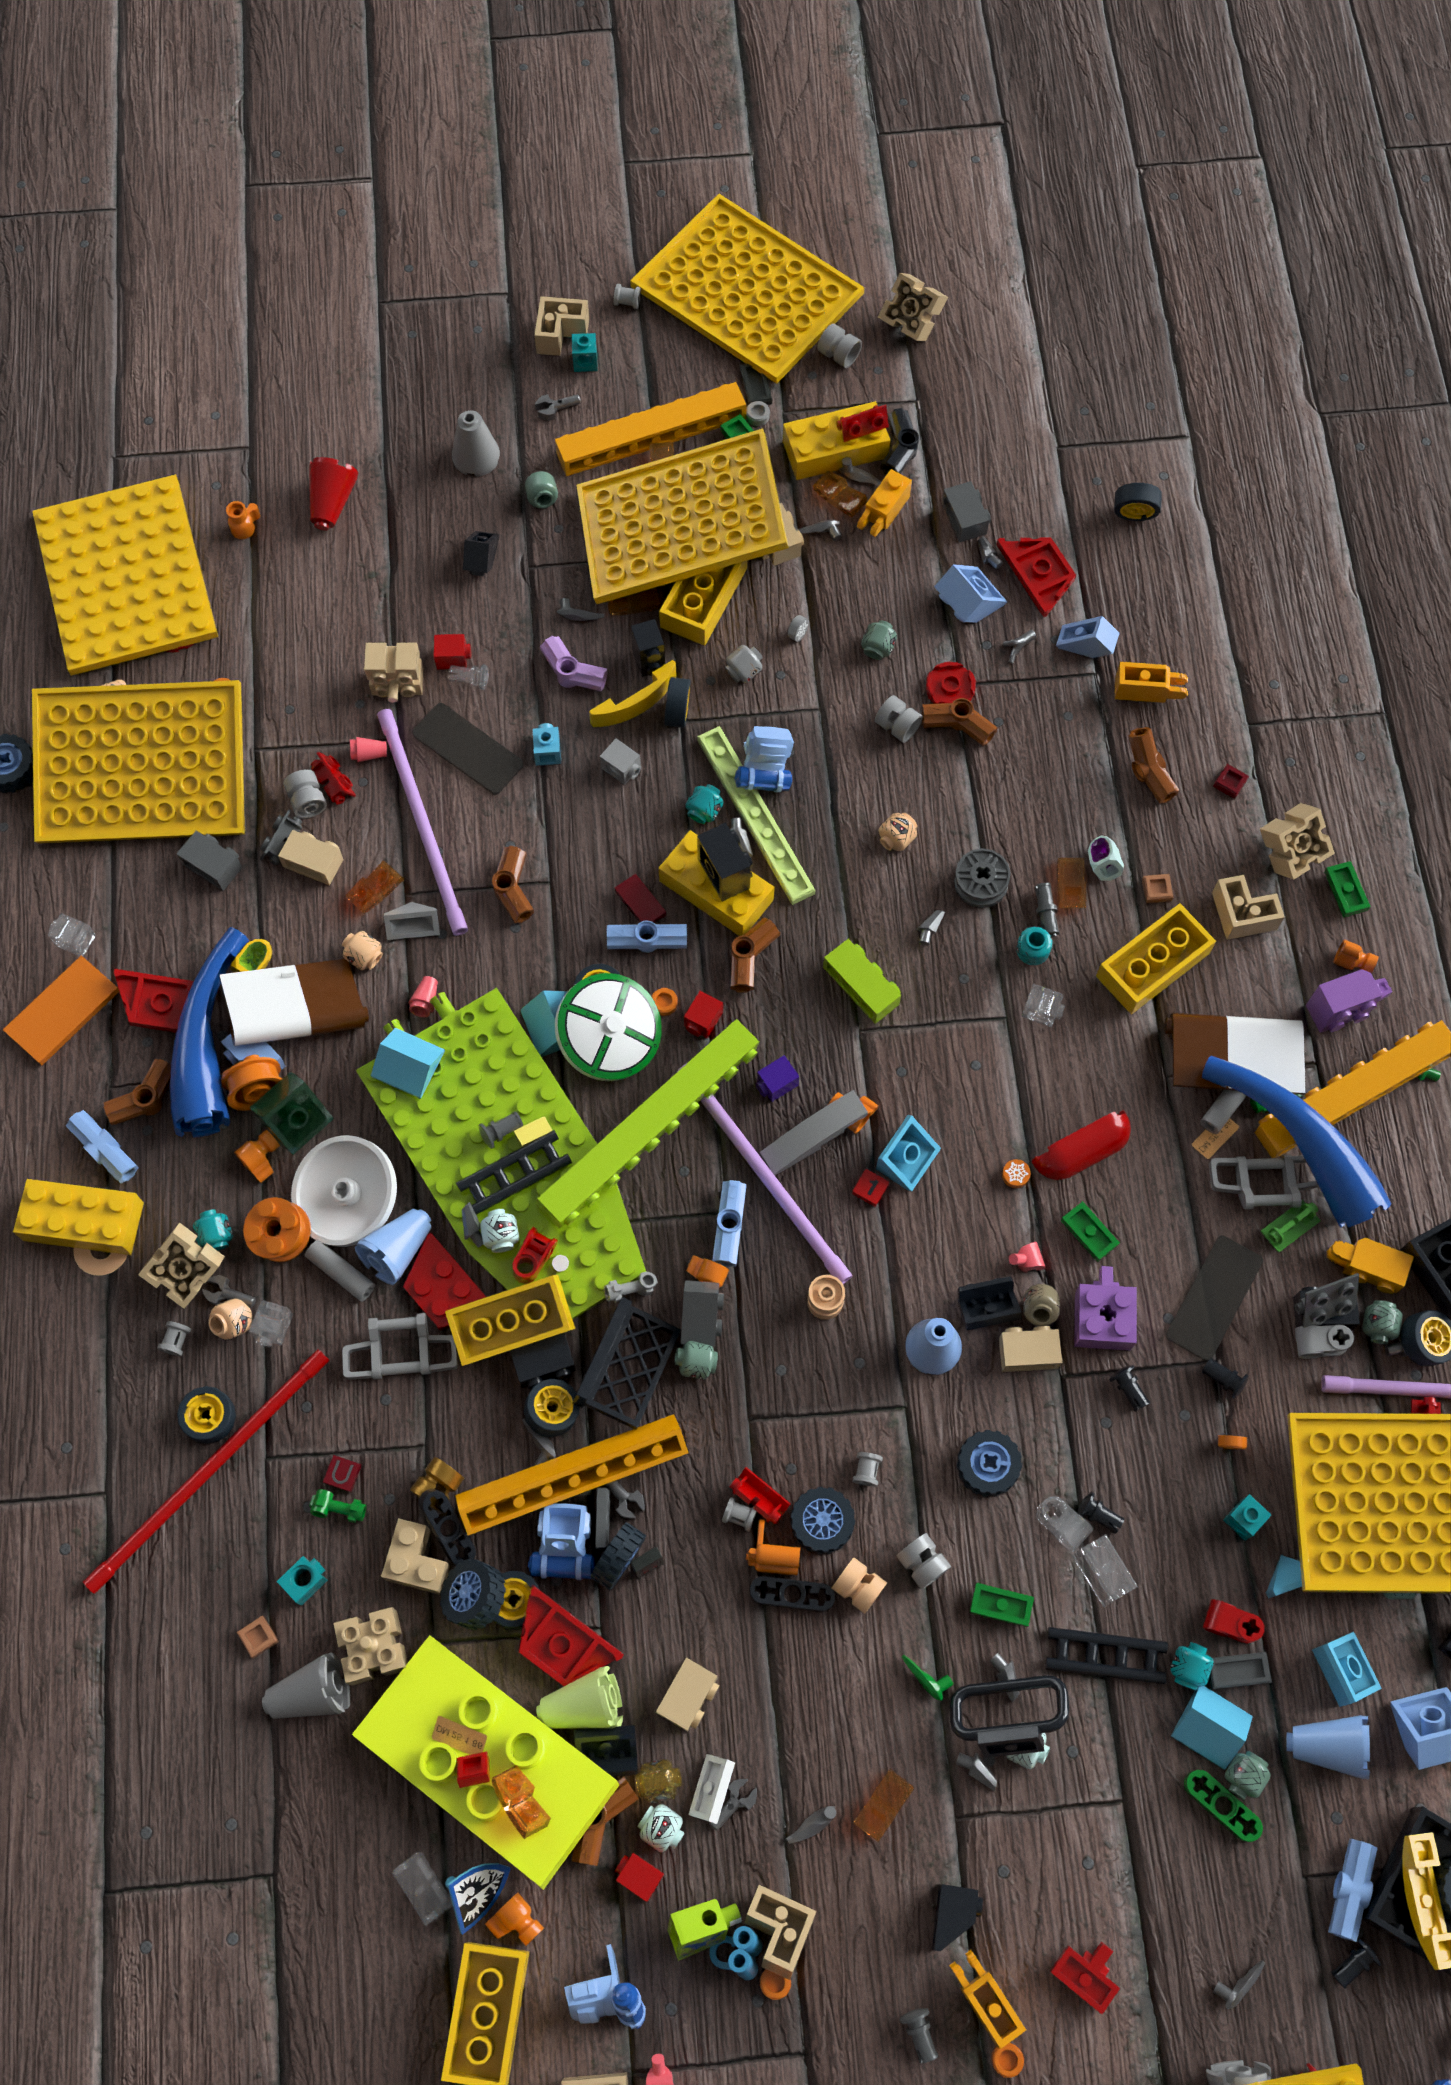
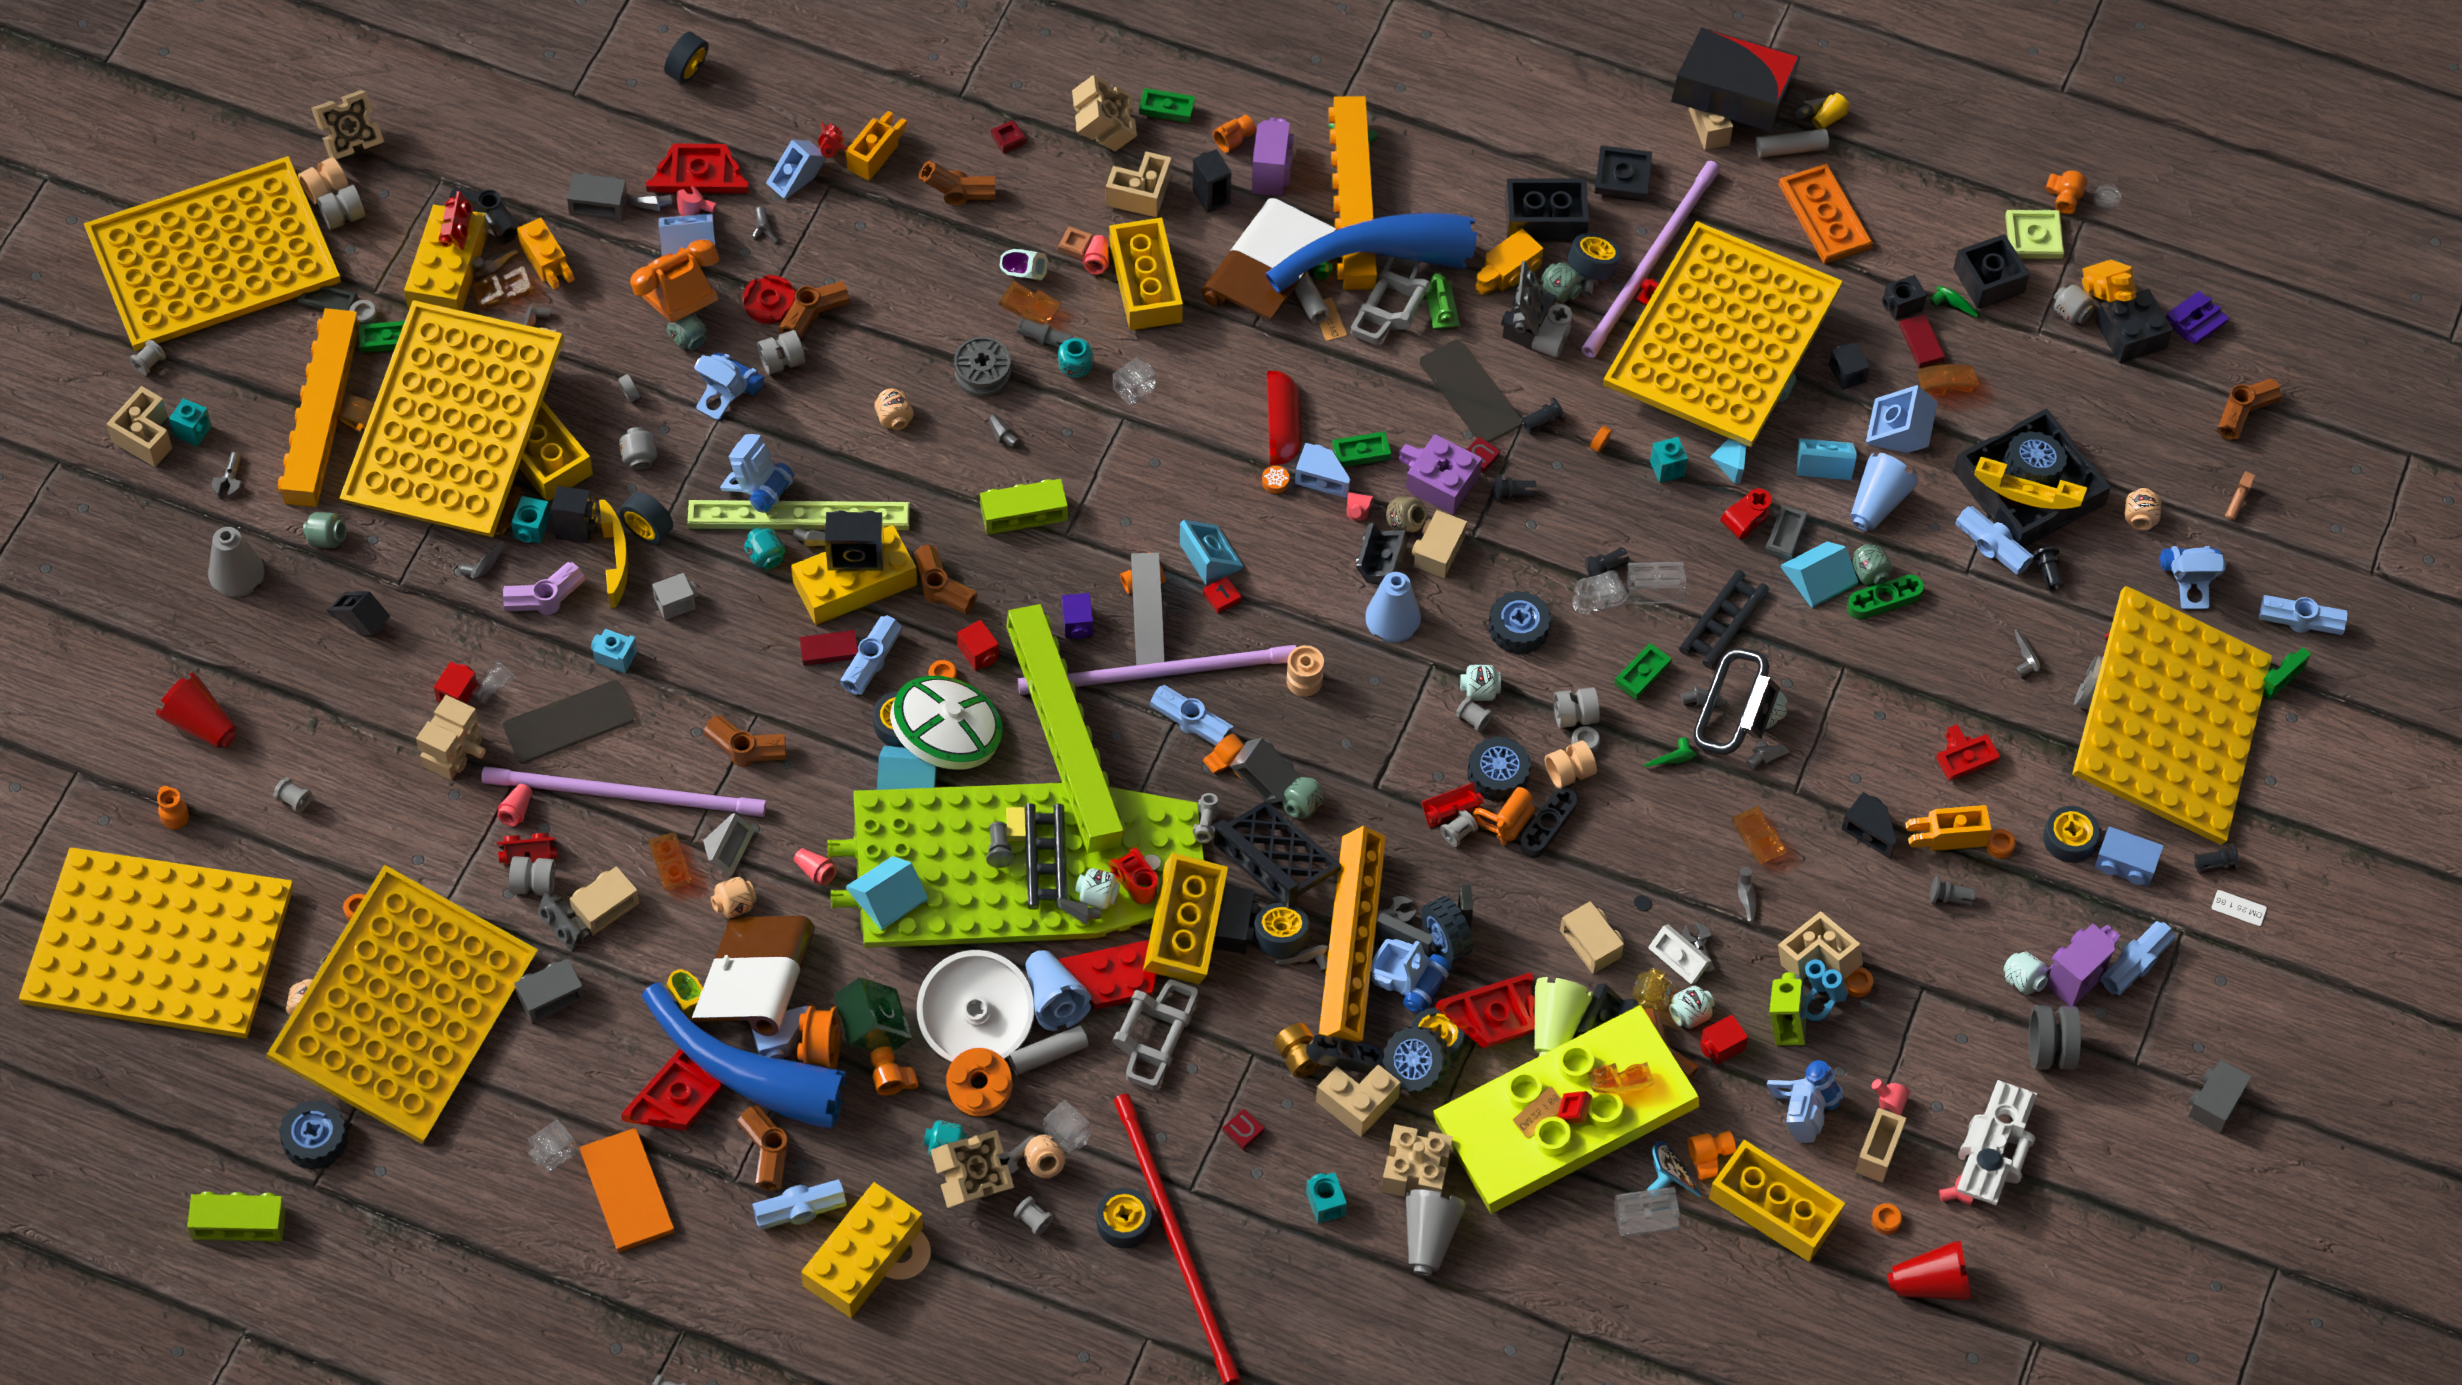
camera: 65 degrees left, 10 degrees down
(257, 1637) = (1355, 1260): nougat tile -> none
(295, 593) = (292, 795): none -> light grey bush
(323, 1502) = (1264, 1154): green bar -> none
(633, 614) = (530, 510): none -> teal brick
(755, 1724) = (1642, 902): none -> black sticker
(846, 690) = (727, 378): none -> light blue piece
(856, 321) = (321, 181): none -> light nougat wheel
(899, 1586) = (1588, 735): none -> light grey tile
(904, 1459) = (1481, 682): none -> light aqua head
(906, 604) = (676, 282): none -> orange piece
(1005, 583) = (693, 203): none -> coral piece
(1045, 1205) = (1321, 471): none -> light blue slope
(1128, 647) = (831, 140): none -> red hinge
(1150, 911) = (1096, 256): none -> coral cone
(1151, 1340) = (1486, 451): none -> dark red tile
(1191, 1666) = (1766, 560): teal head -> none
(1286, 963) = (1211, 180): none -> black piece

